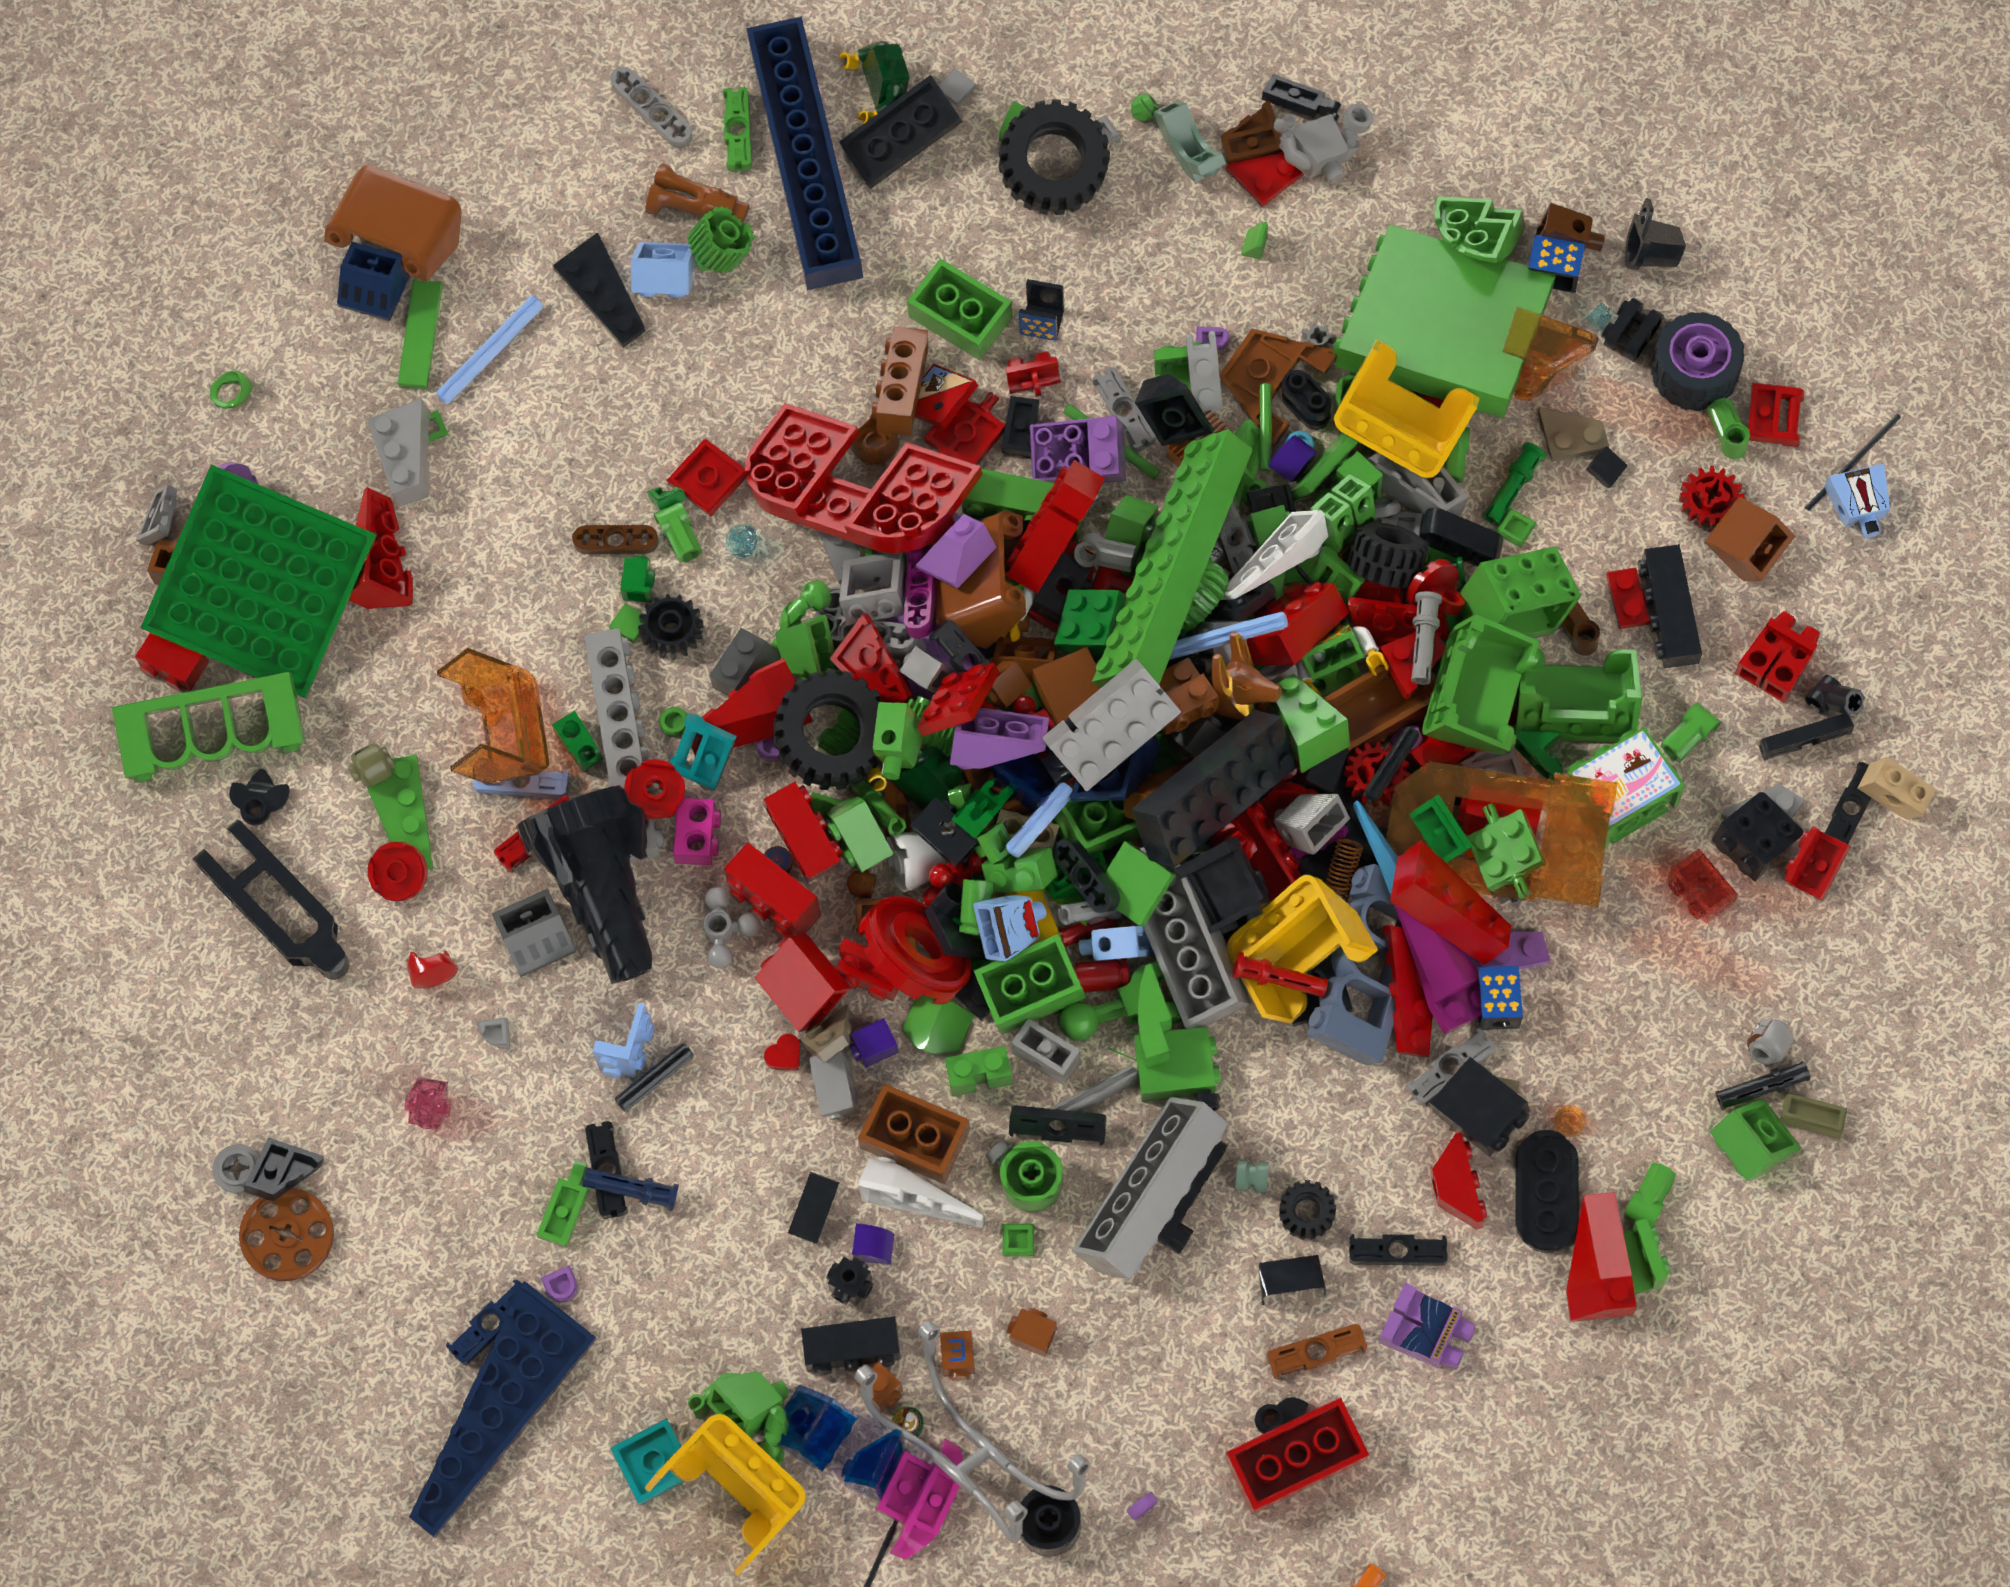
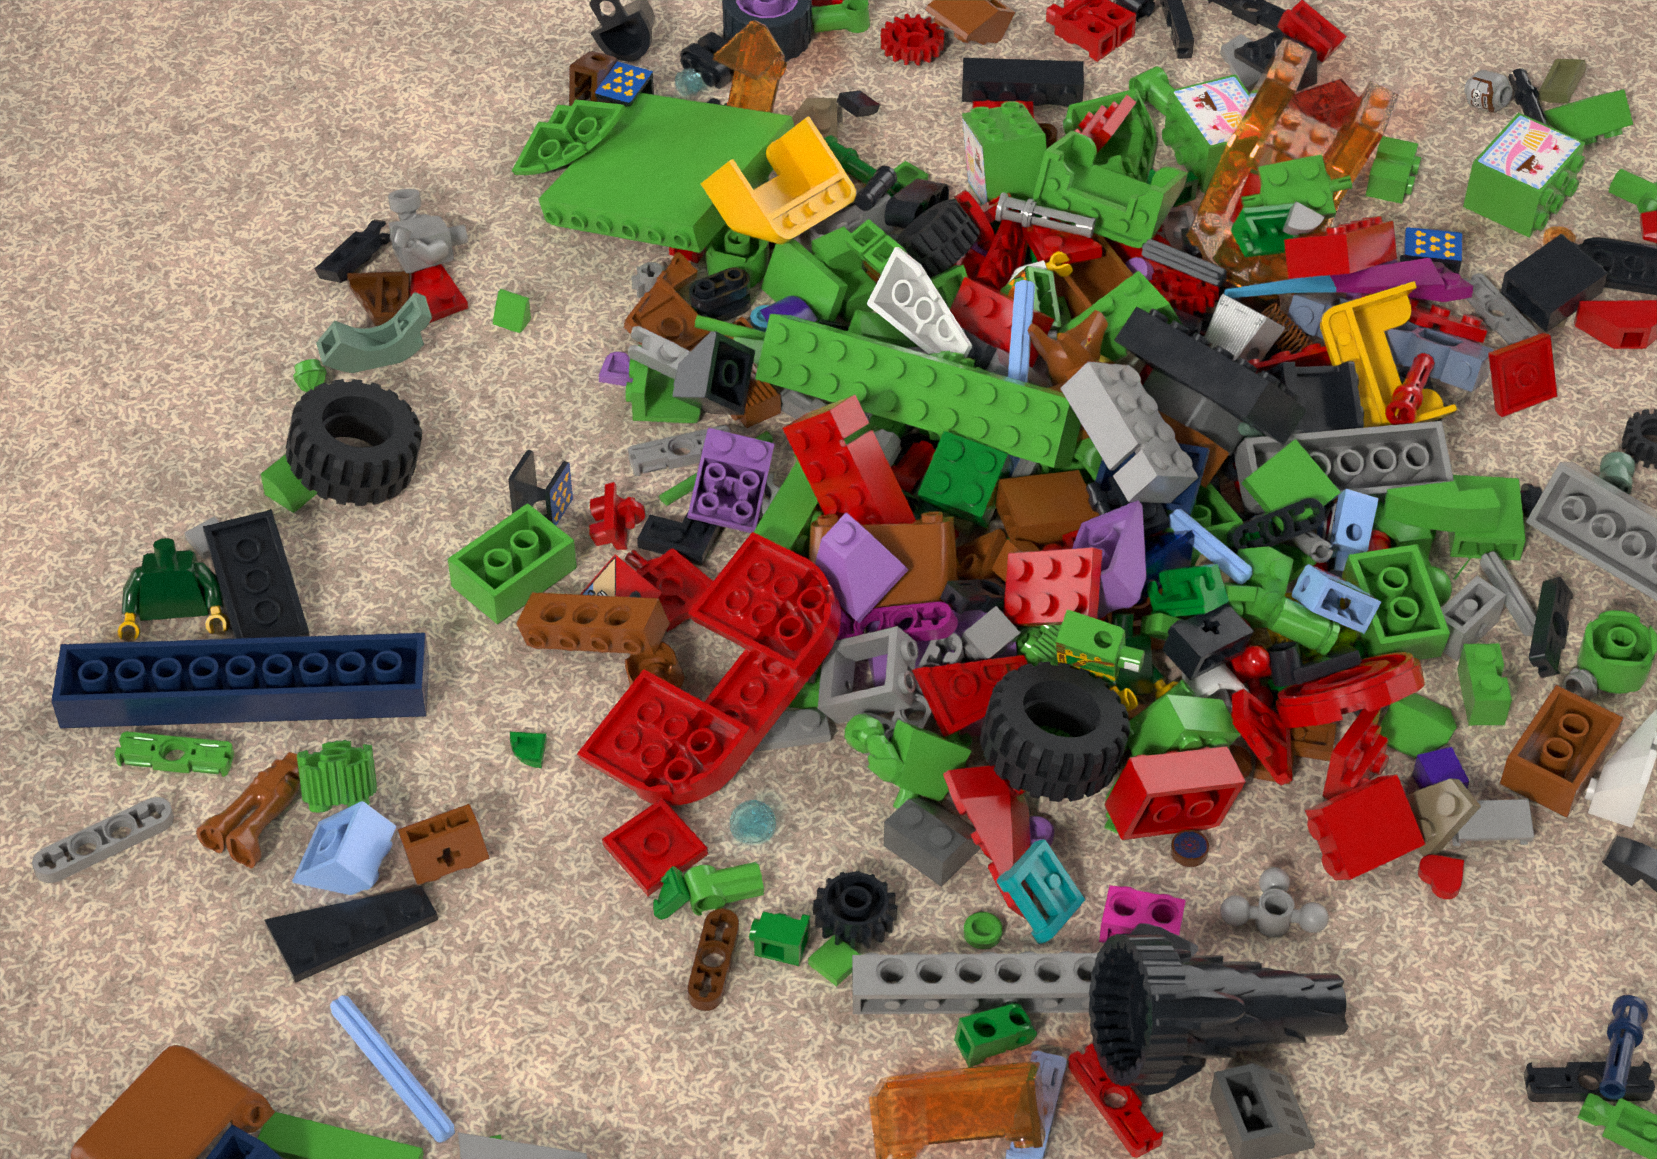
camera: 85 degrees left, 20 degrees down
(622, 1060) = (1435, 1012): light blue bracket -> none
(654, 1077) = (1466, 1014): black axle -> none
(669, 780) = (1079, 923): red plate -> none
(675, 330) = (443, 844): none -> dark orange brick
(771, 892) = (1244, 840): red brick -> none
(789, 370) = (529, 747): none -> green tile
(874, 882) = (1264, 734): none -> red wing
(1350, 1084) = (1523, 374): none -> red tile
(1446, 851) = (1301, 220): none -> light grey tile
(1447, 493) = (877, 186): none -> black piece
(1582, 674) = (1105, 121): none -> plate
(1625, 958) = (1392, 170): none -> bright green brick
(1630, 1075) = (1524, 175): none -> container

